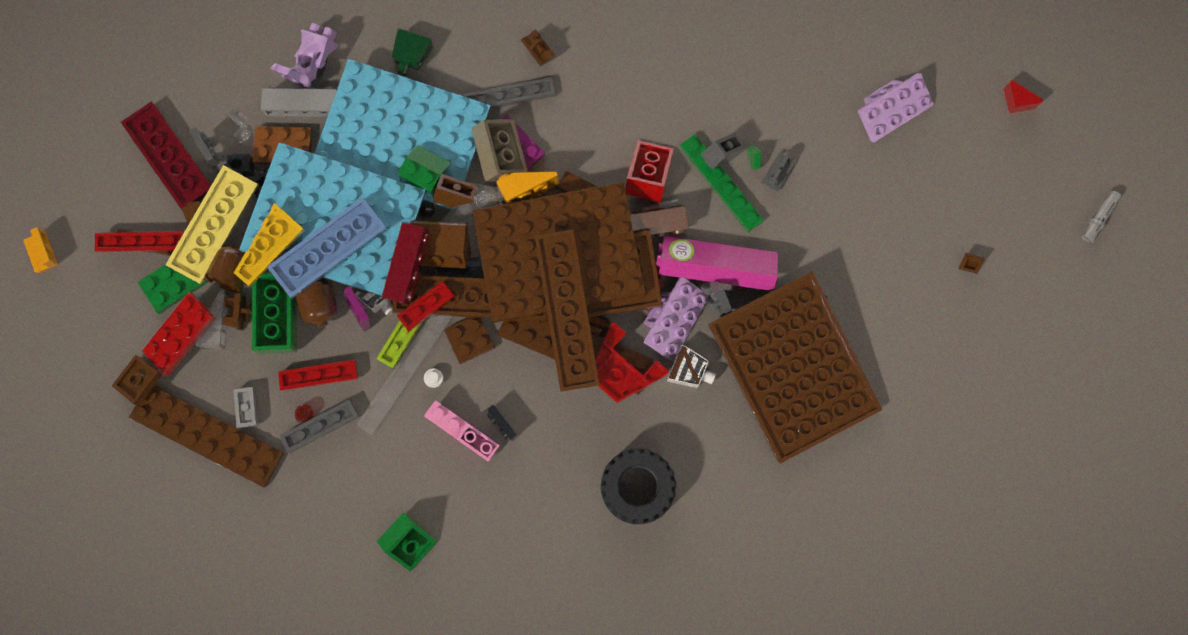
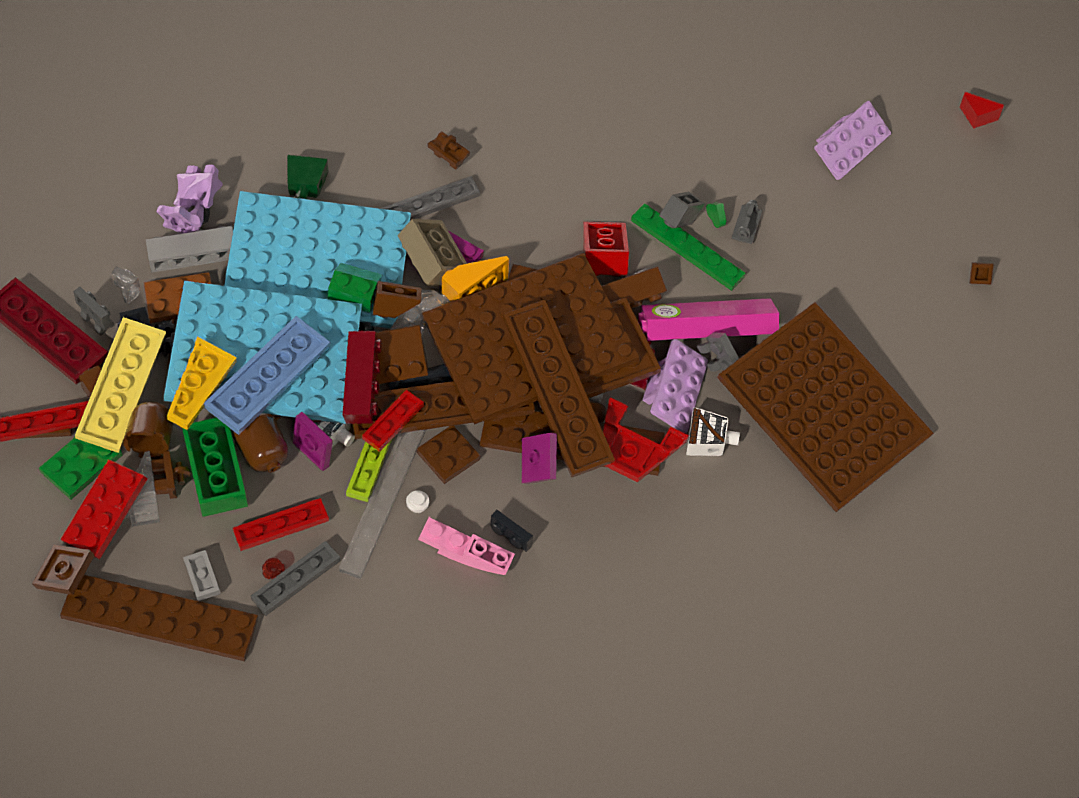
camera: 20 degrees left, 20 degrees down
(406, 542) = (432, 679): green slope -> none
(538, 366) = (539, 458): none -> magenta plate
(657, 467) = (691, 535): black tyre -> none

